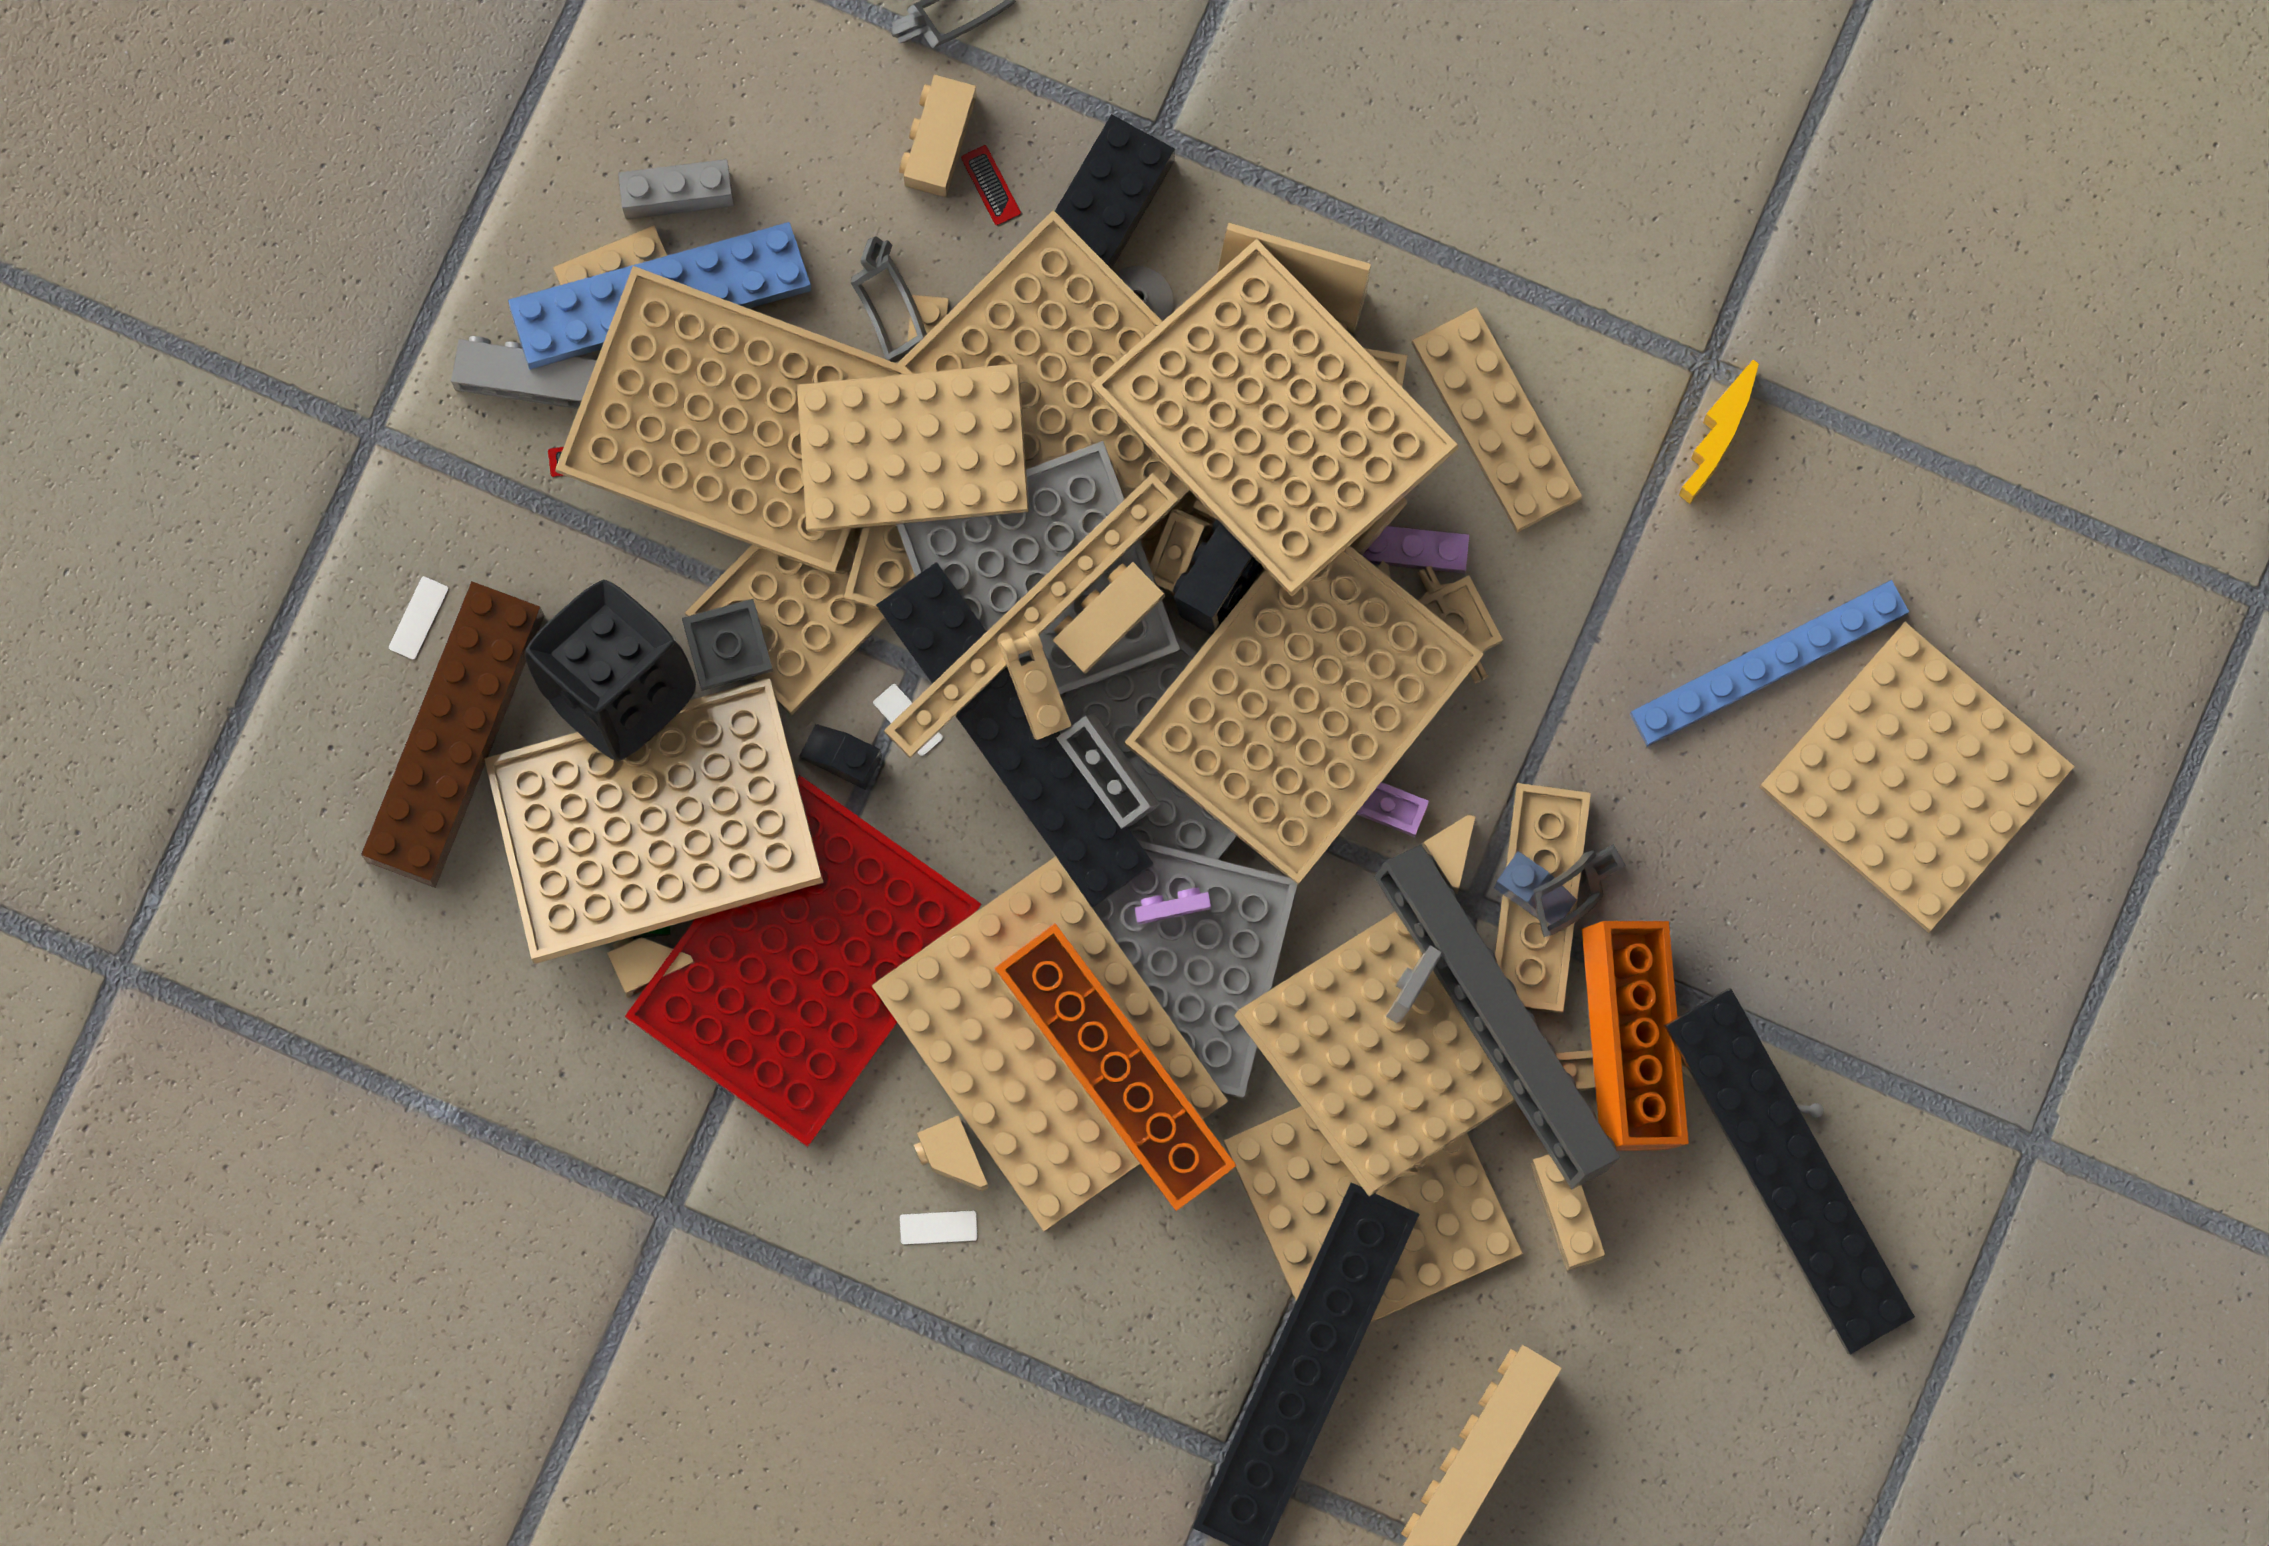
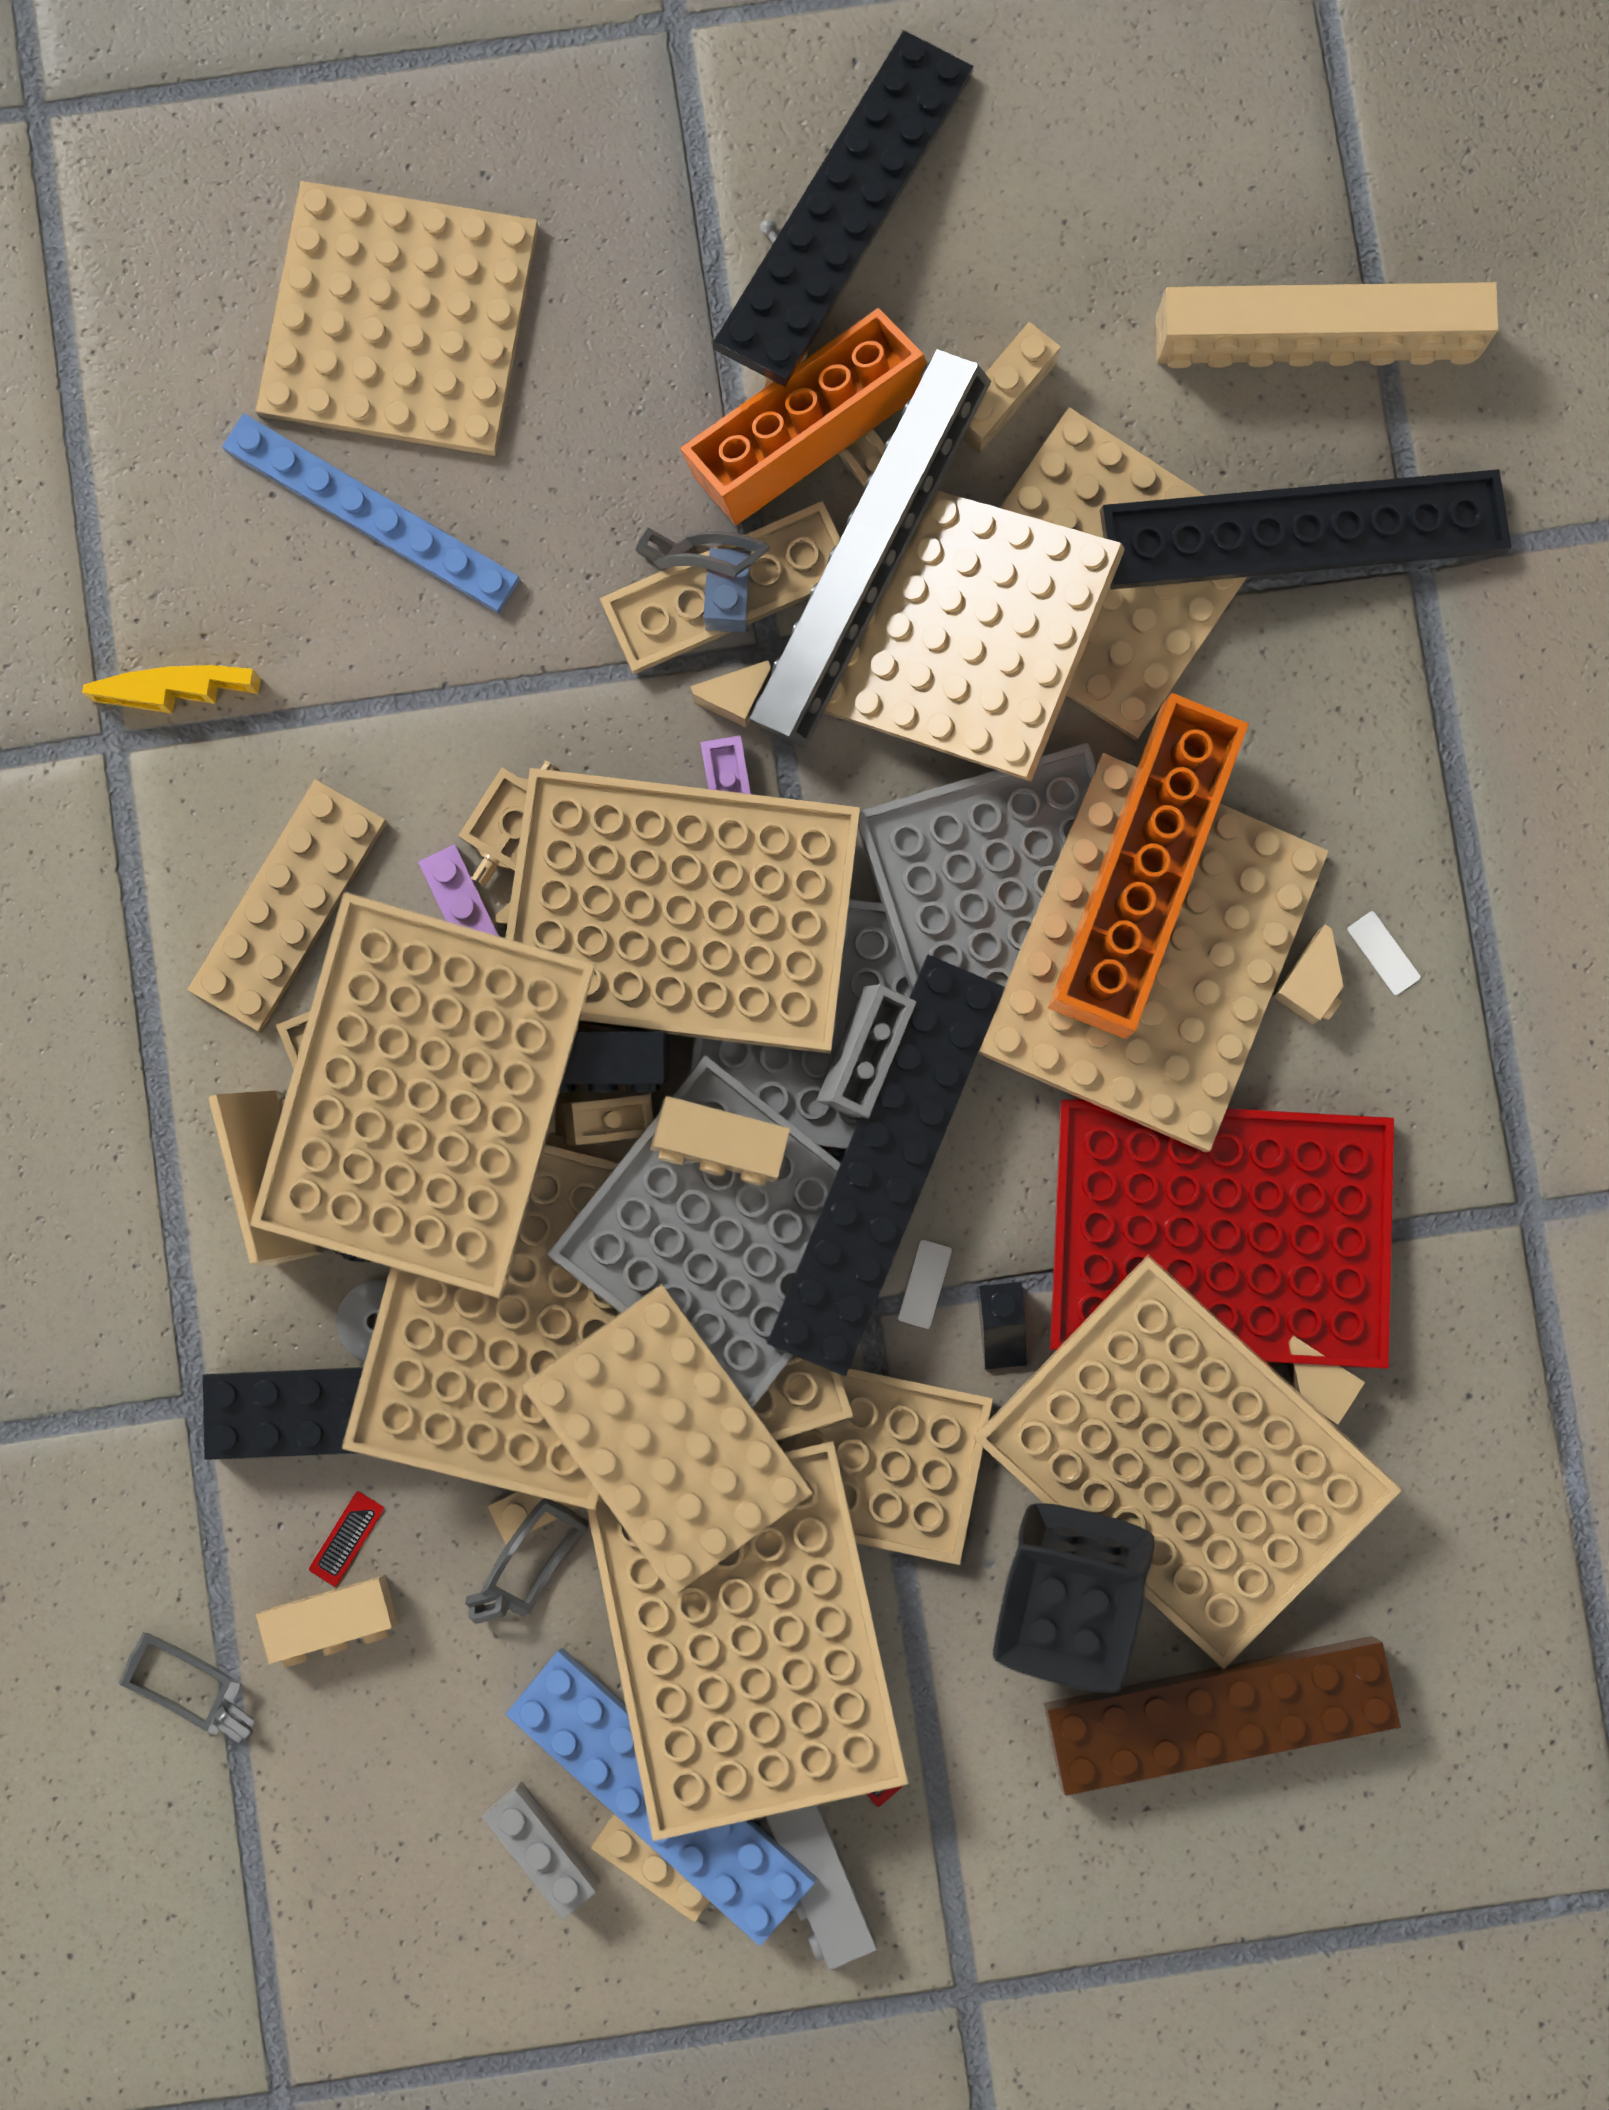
camera: 120 degrees left, 5 degrees up
(418, 617) = (1123, 1826): white sticker -> none
(727, 644) = (968, 1501): dark grey plate -> none
(1033, 611) = (766, 1213): tan plate -> none
(1035, 685) = (833, 1165): tan plate -> none
(1157, 909) = (947, 898): lavender plate -> none
(1412, 983) = (892, 638): light grey plate -> none

